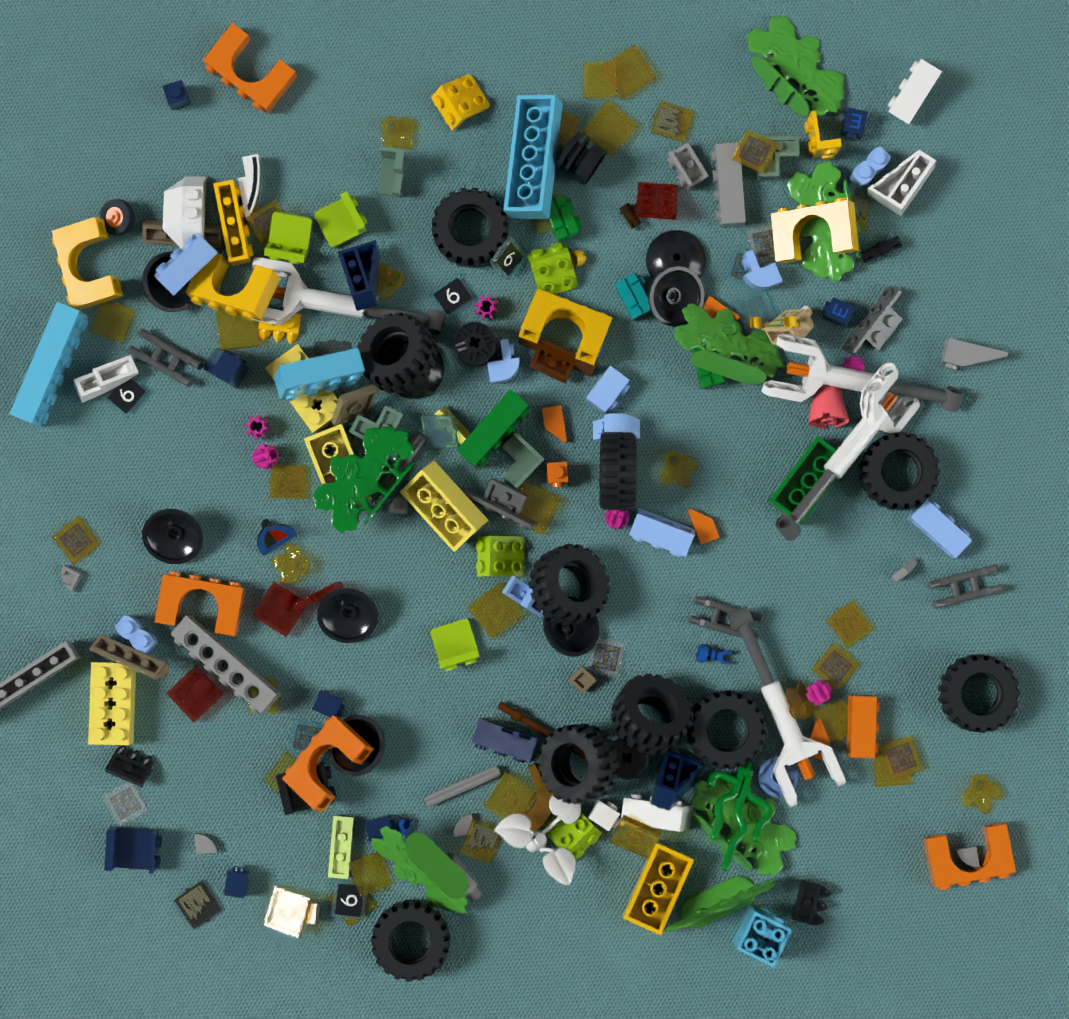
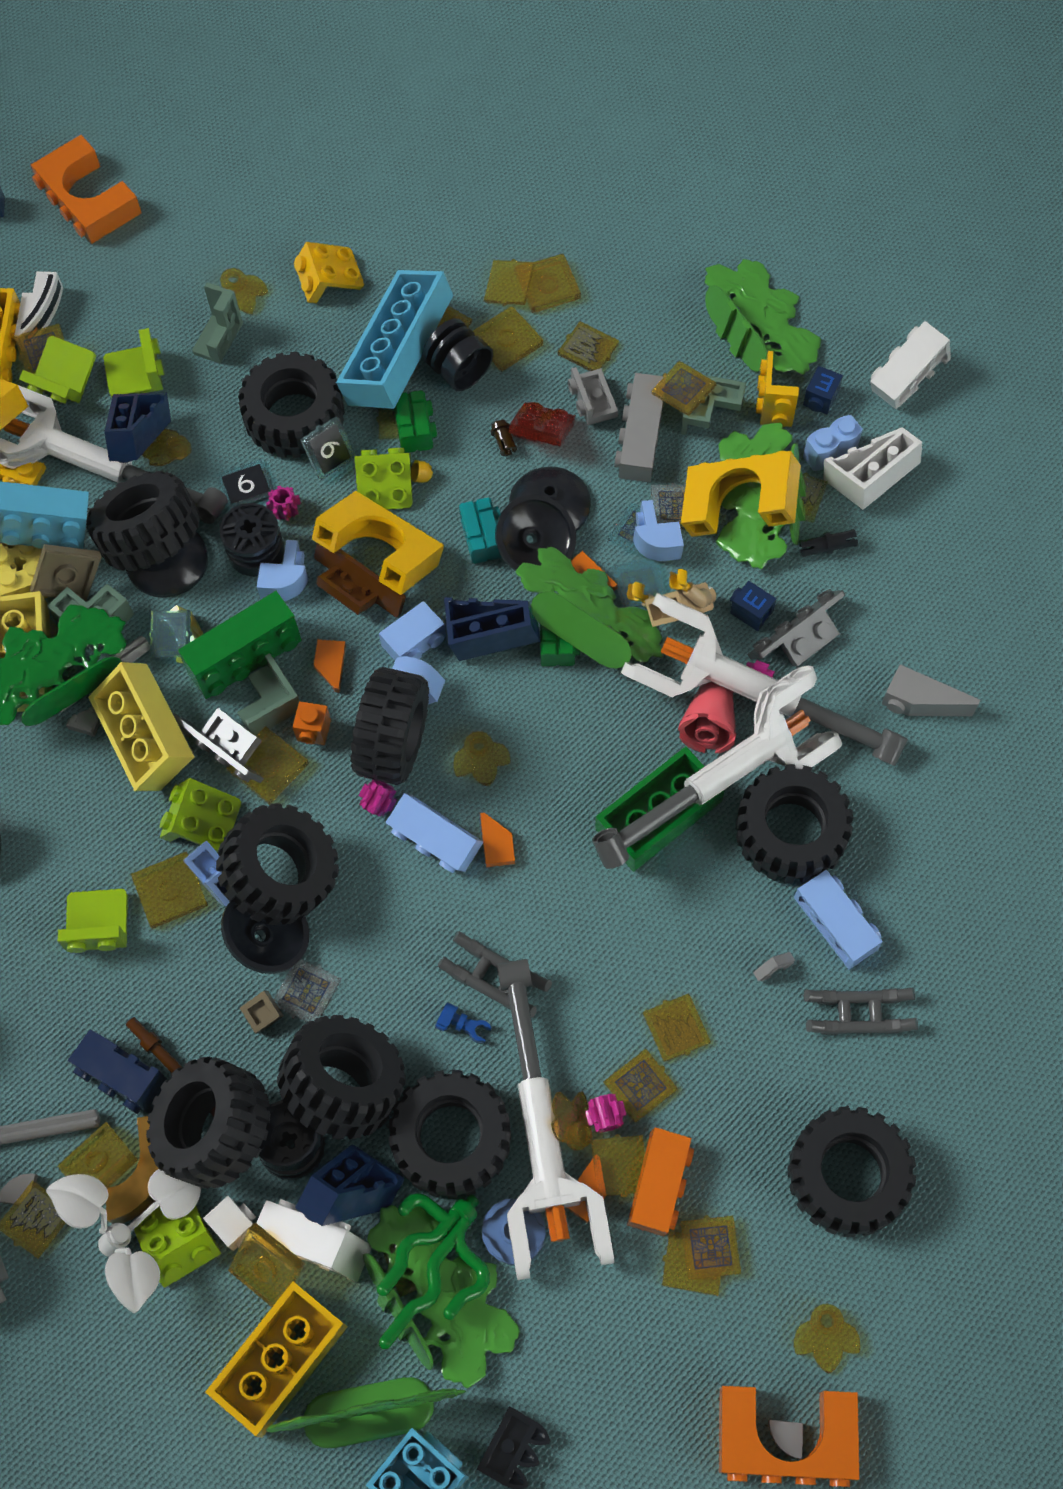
camera: 15 degrees right, 20 degrees down
(660, 375) = (488, 627): none -> dark blue wedge

